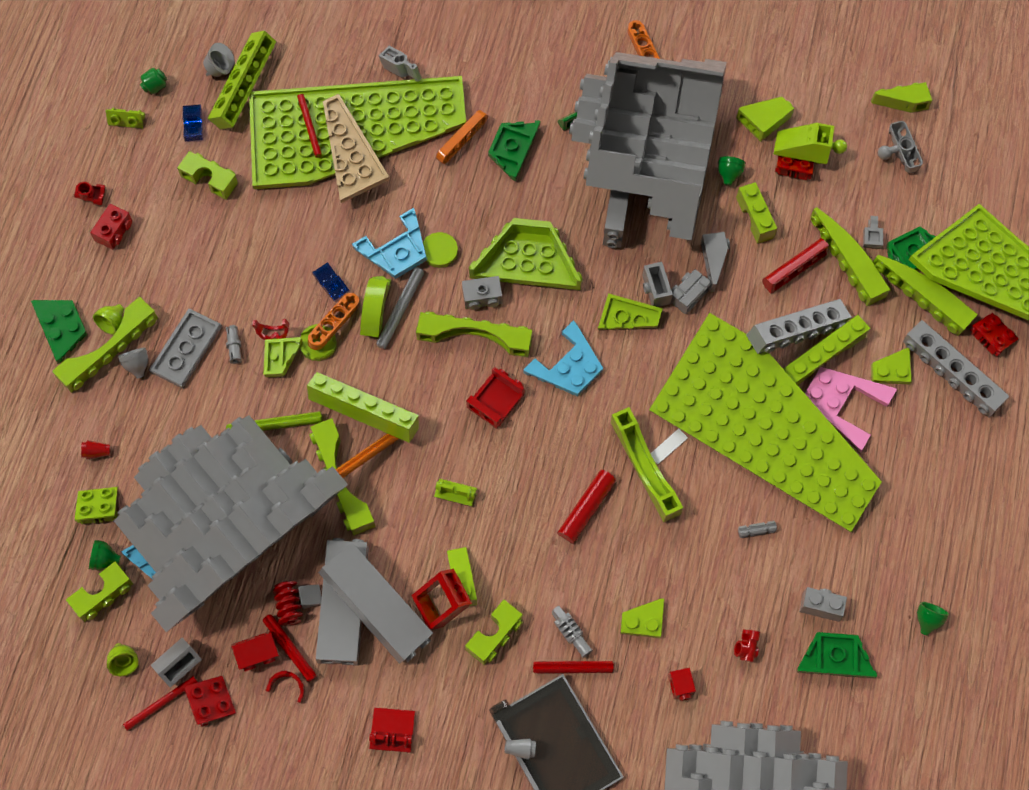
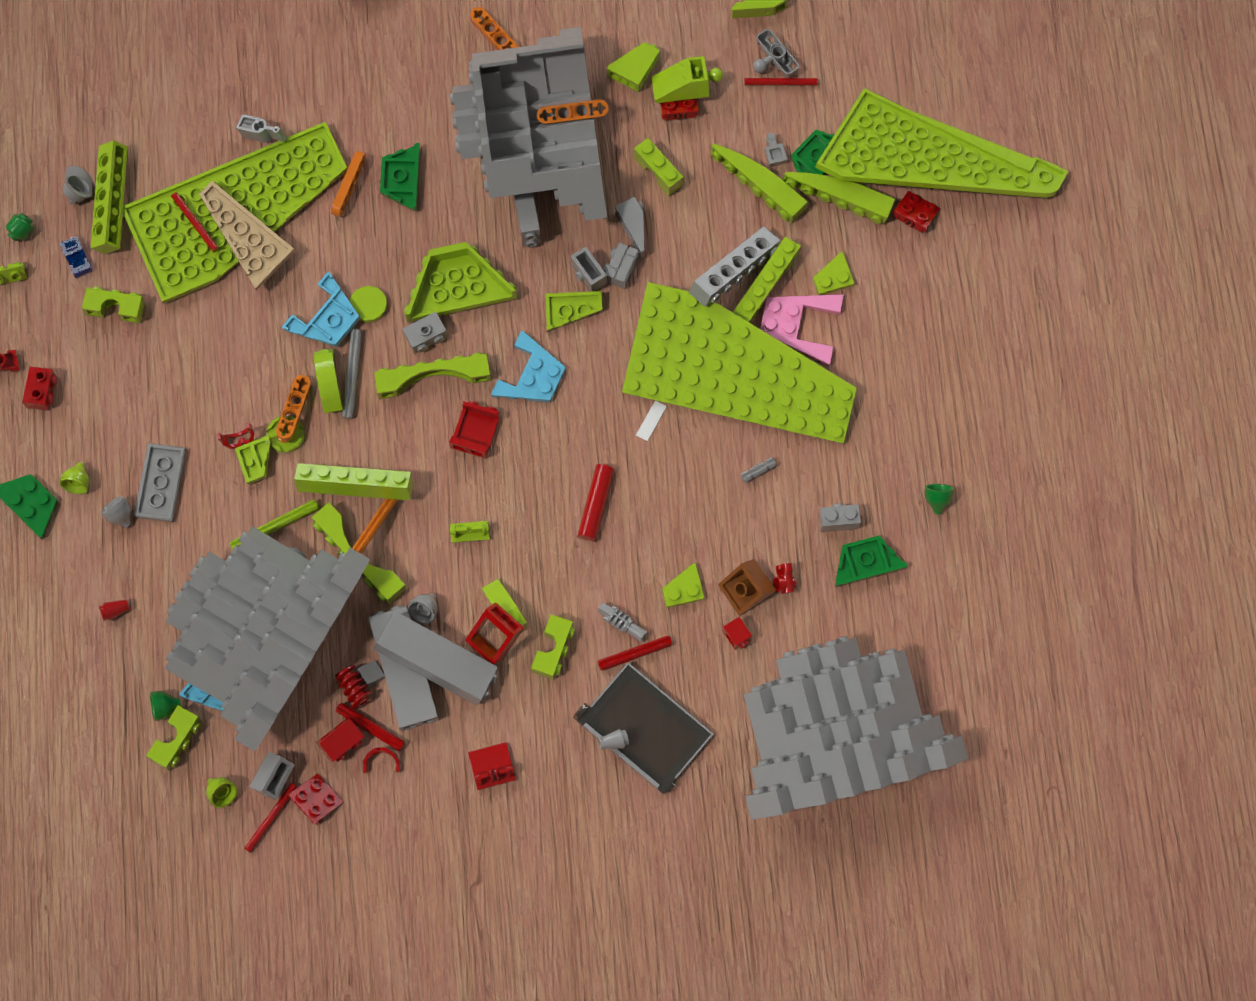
camera: 20 degrees left, 5 degrees up
(77, 370) = (63, 541): lime arch -> none
(96, 504) = (137, 659): lime hinge -> none
(233, 344) = (205, 463): light grey pin -> none
(330, 281) = (275, 371): clear blue slope -> none
(383, 550) = (423, 608): none -> light grey helmet
(566, 121) = (445, 132): green slope -> none
(657, 487) = (617, 427): lime arch -> none
(691, 138) = (572, 111): none -> orange beam
(707, 640) = (746, 586): none -> dark orange slope
(730, 169) = (619, 131): green helmet -> none
(795, 265) = (712, 206): red brick -> none
(899, 173) = (780, 81): none -> red bar
(953, 358) = (900, 255): light grey brick -> none

